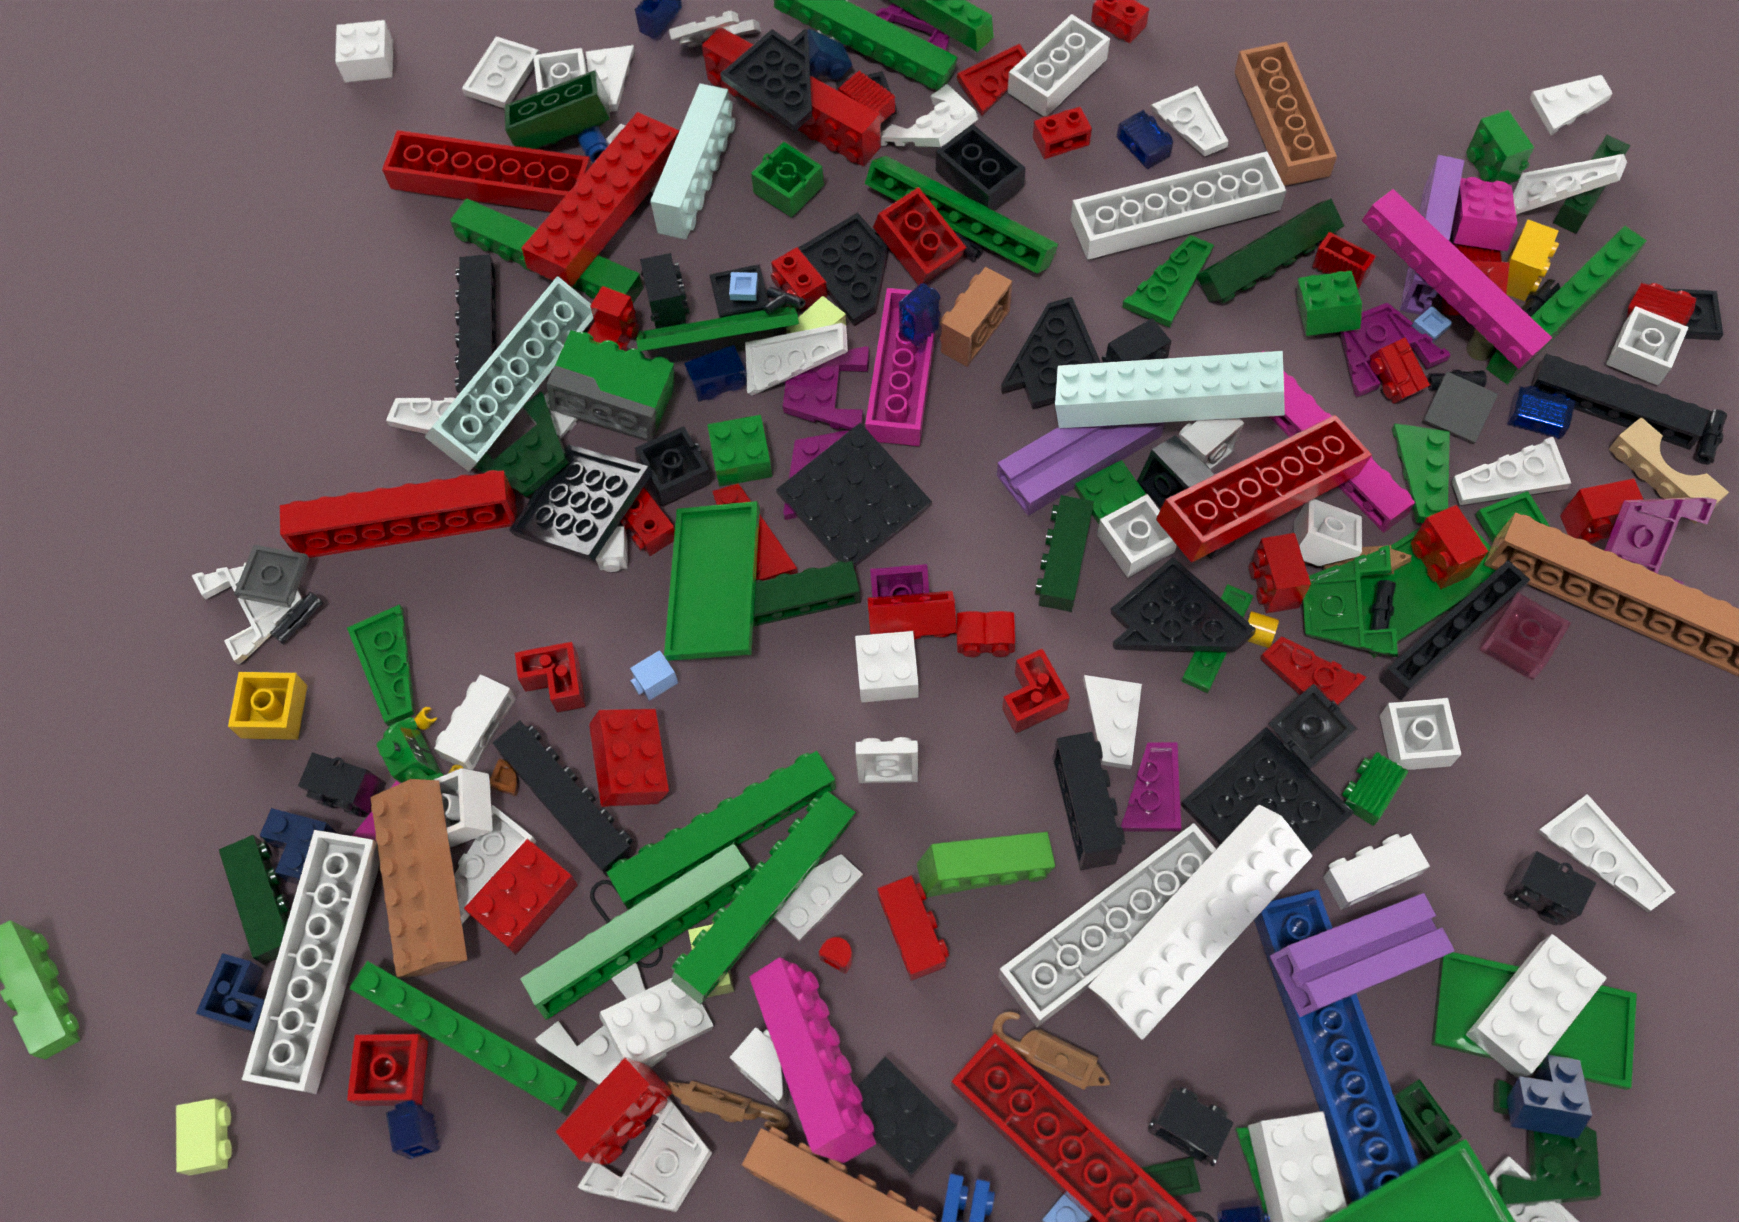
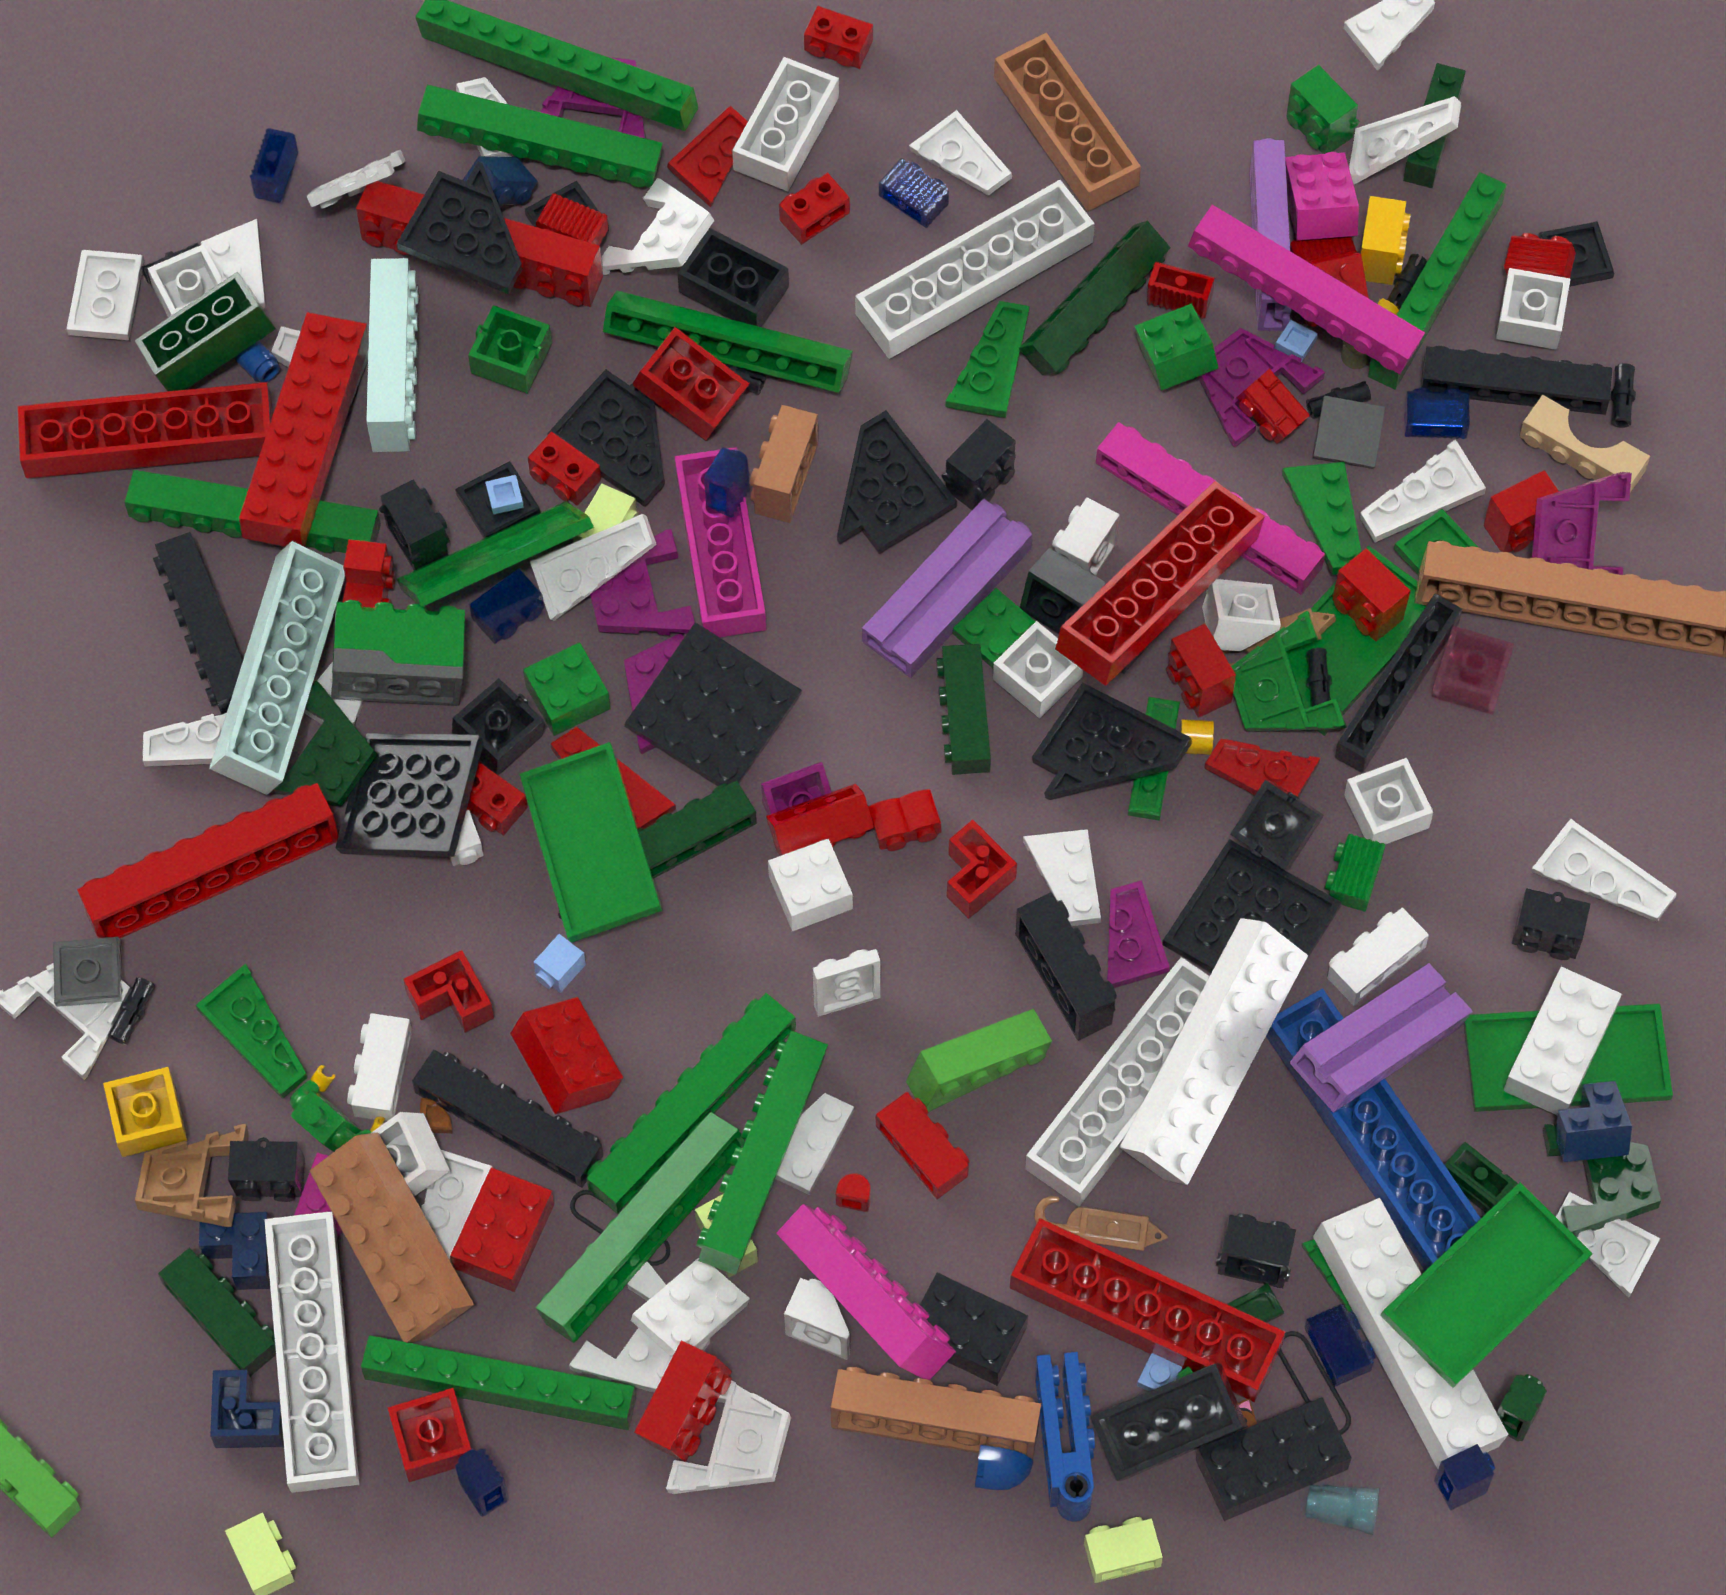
camera: 20 degrees left, 0 degrees up
(271, 768) = (176, 1177): none -> medium nougat wing
(728, 1105) = (794, 1369): medium nougat plate -> none
(780, 299) = (554, 498): black piece -> none
(1170, 390) = (1028, 498): light aqua brick -> none

